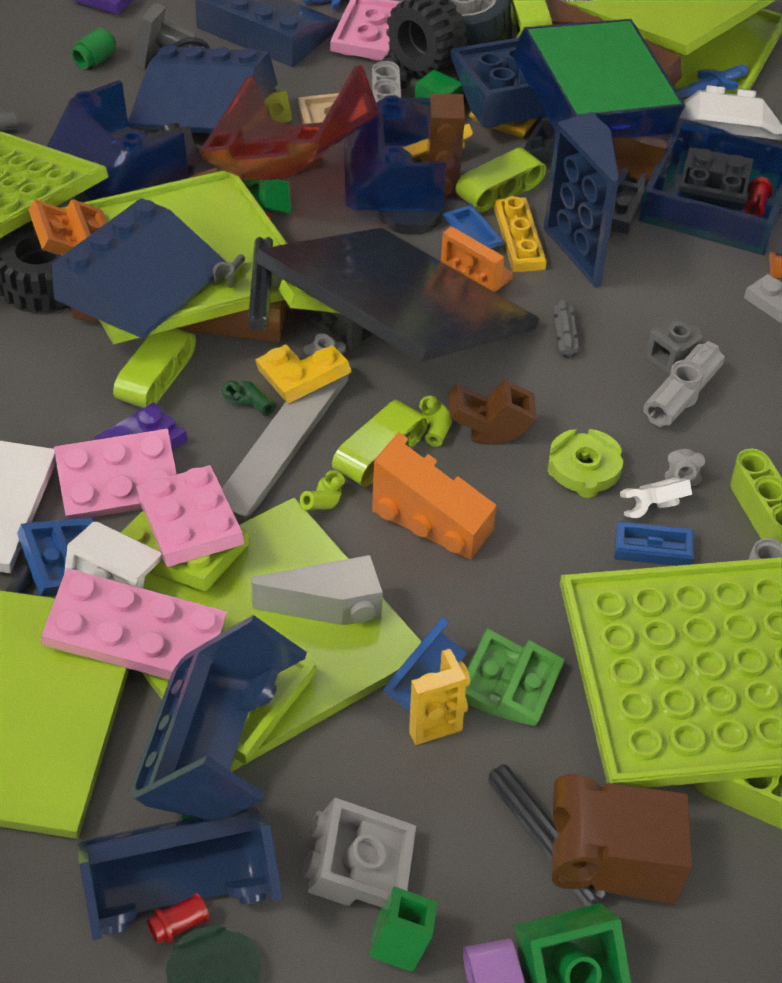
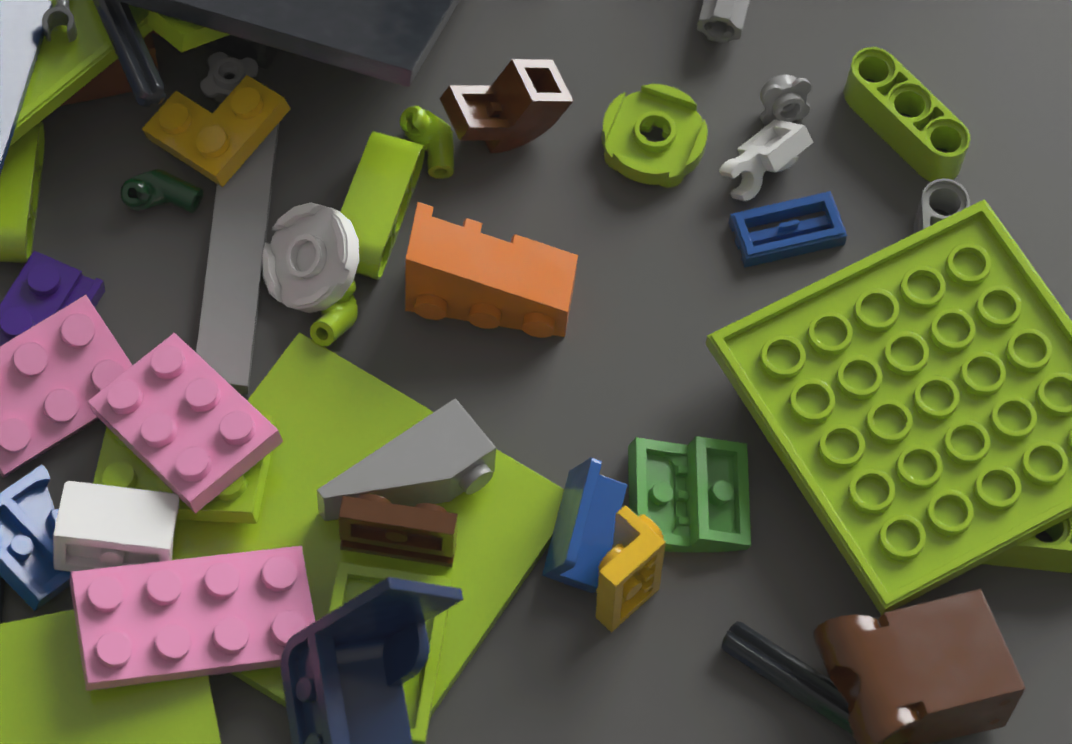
camera: 25 degrees left, 15 degrees up
(298, 621) = (398, 531): none -> reddish brown plate
(321, 455) = (310, 257): none -> white tile

